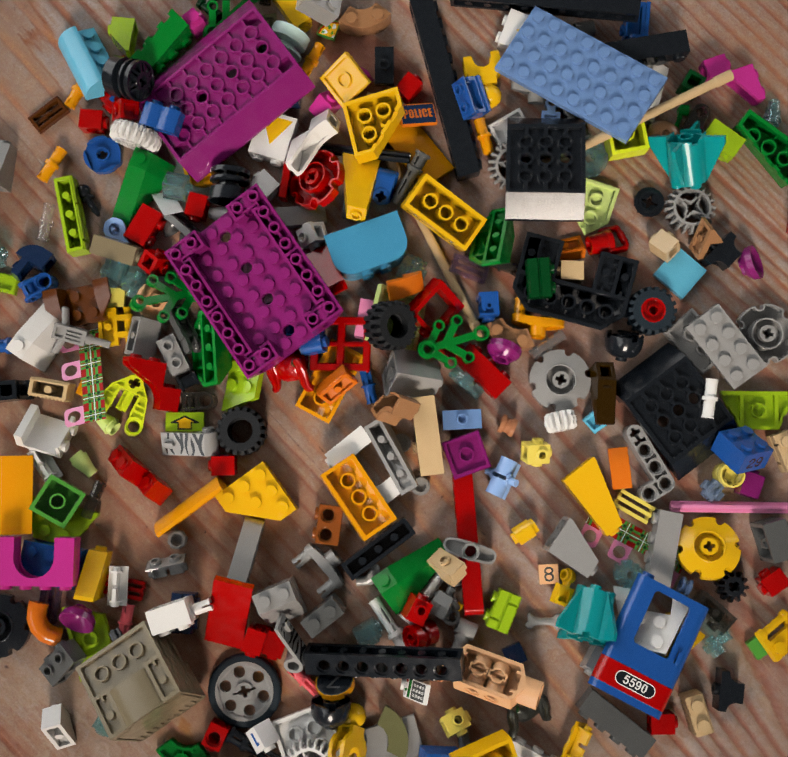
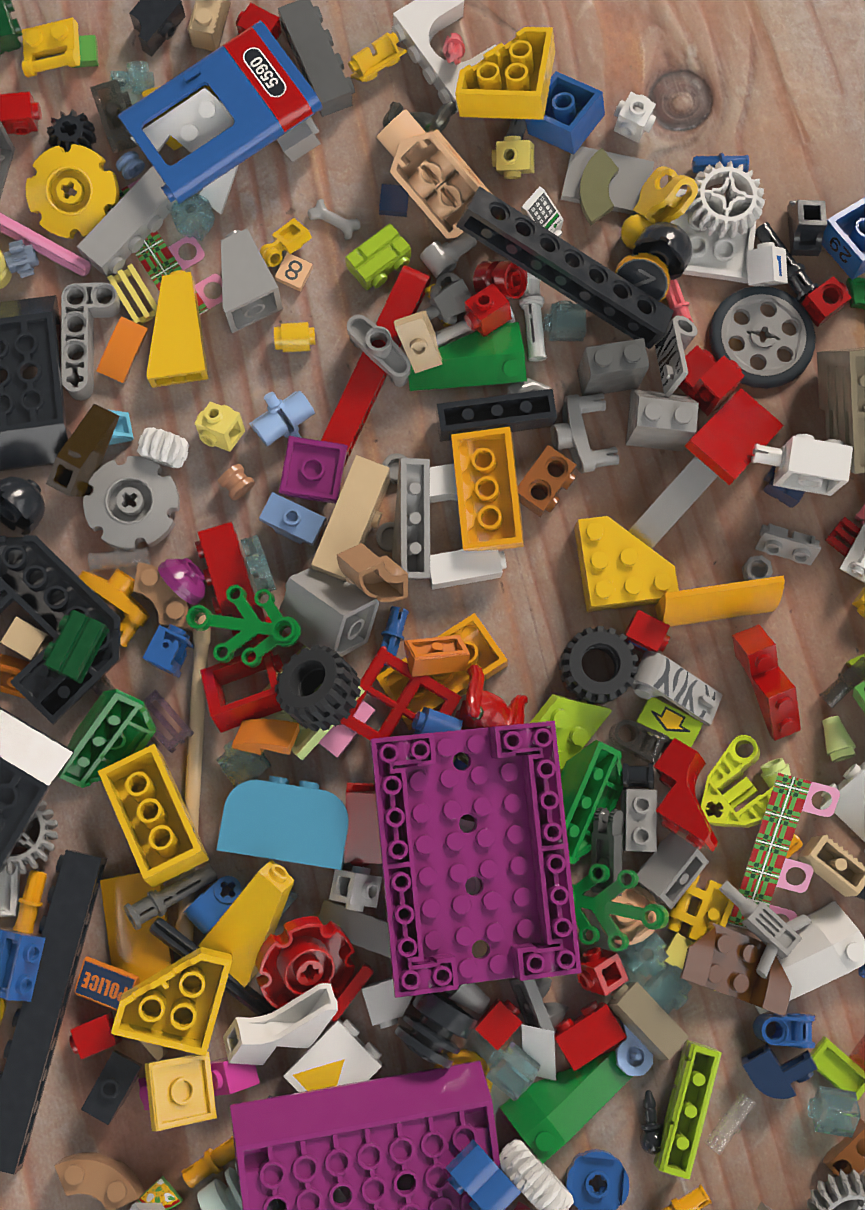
camera: 160 degrees left, 5 degrees down
(589, 616) = (271, 184): teal brick -> none

